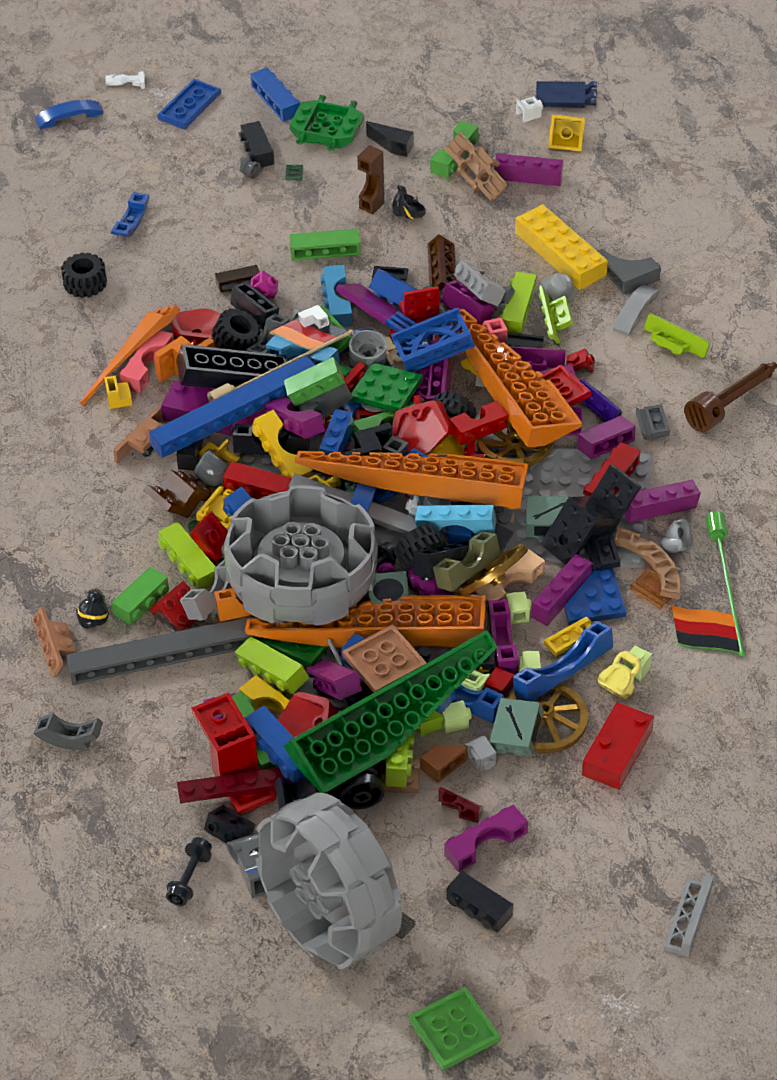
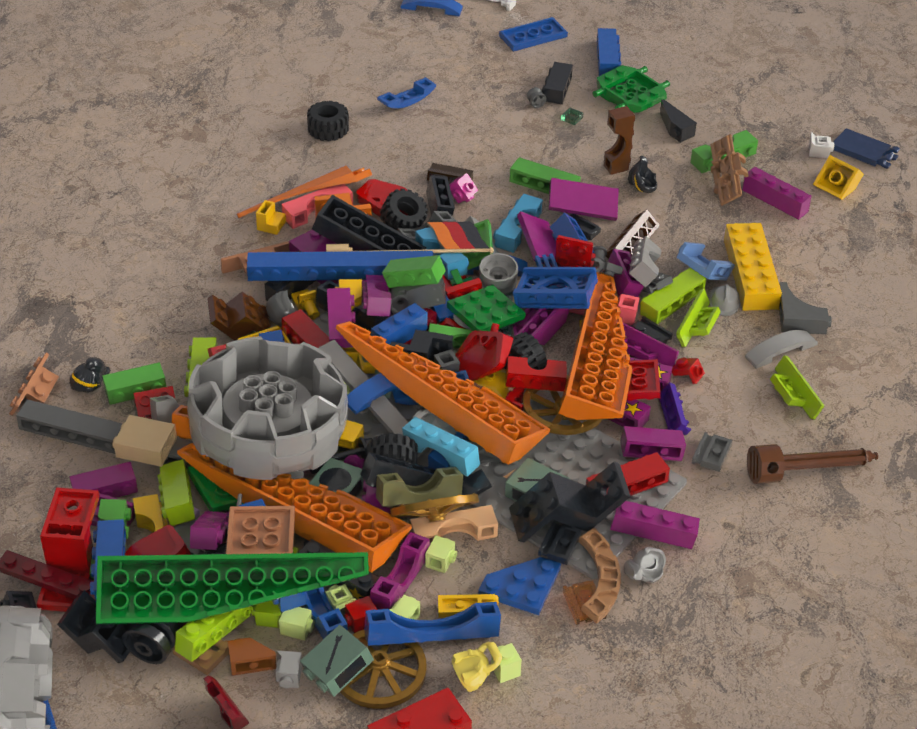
camera: 30 degrees right, 5 degrees down
(200, 686) = (111, 480): none -> magenta brick
(208, 636) = (145, 440): none -> tan brick
(280, 450) = (339, 312): none -> magenta brick
(314, 315) = (471, 224): white piece -> none
(376, 248) = (583, 199): none -> magenta tile
(454, 303) = (608, 268): none -> dark grey plate
(521, 264) = (692, 256): none -> medium blue panel
(560, 590) = (478, 561): magenta brick -> none
(707, 627) = (611, 668): flag -> none

